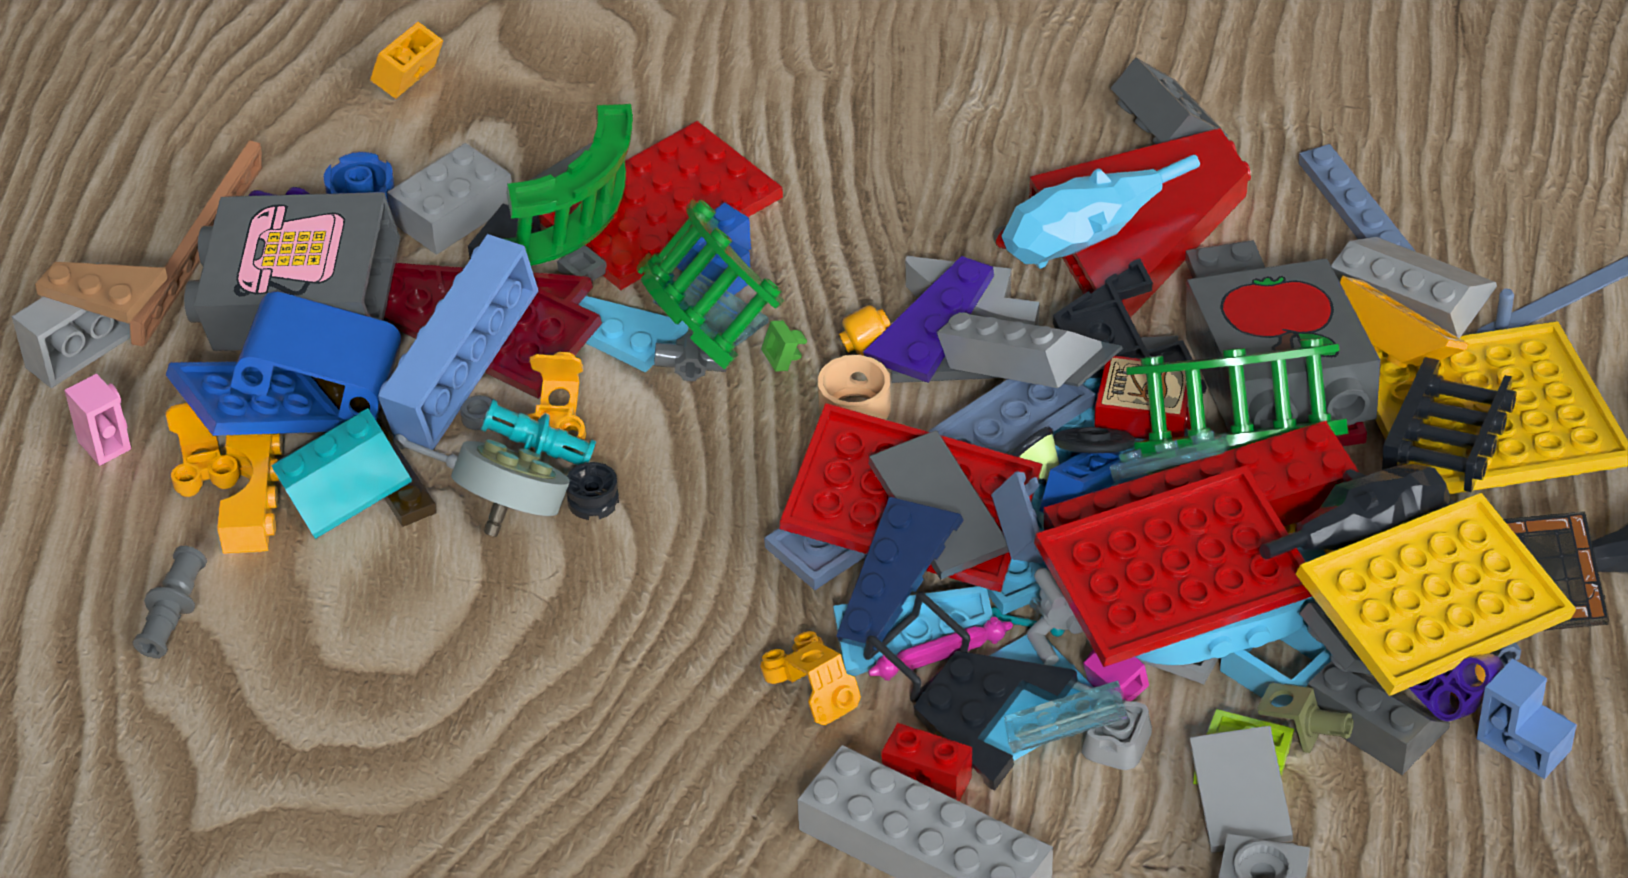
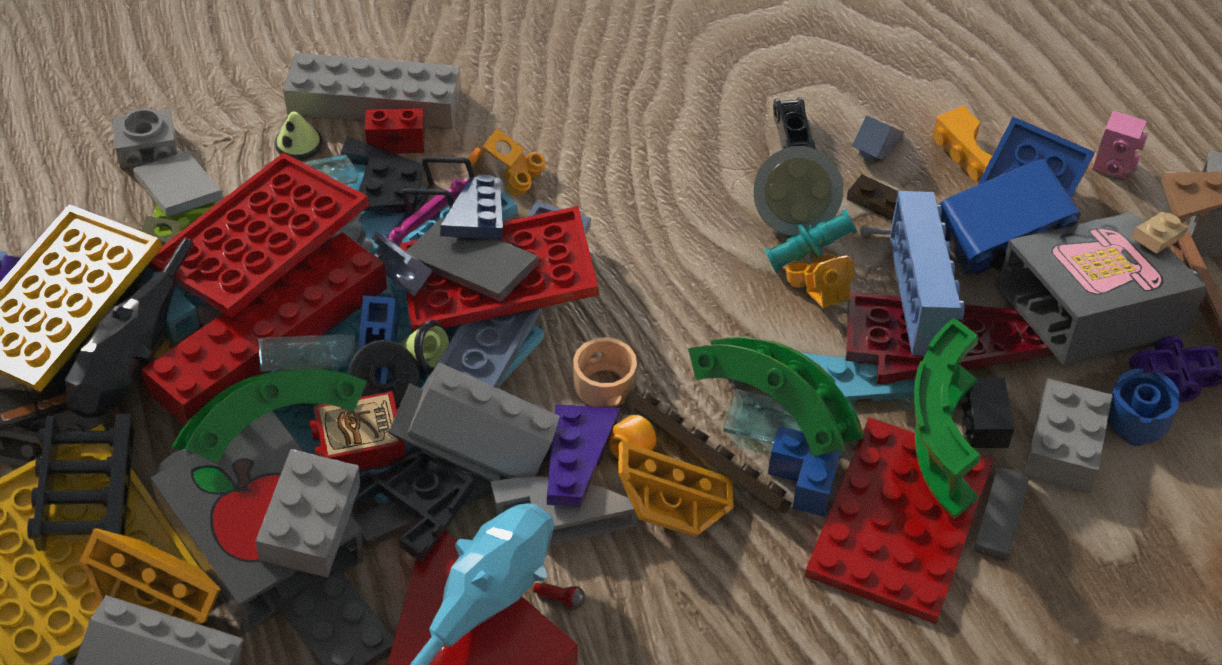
camera: 150 degrees right, 5 degrees up
(169, 602) = (950, 67): dark grey piece -> none
(201, 261) = (1160, 232): none -> tan plate
(341, 473) = (925, 169): slope -> none
(342, 546) = (876, 139): none -> sand blue slope
(432, 592) = (792, 123): none -> black piece
(474, 411) = (881, 274): dark grey tile -> none
(582, 263) = (904, 416): dark grey plate -> none
(592, 490) = (747, 236): black wheel -> none
(781, 345) = (692, 401): bright green tile -> none
(800, 293) = (719, 457): none -> dark brown plate
(863, 261) = (673, 491): none -> light orange wedge
(1056, 818) = (298, 138): none -> yellowish green hat
(1235, 277) = (308, 513): none -> light grey brick

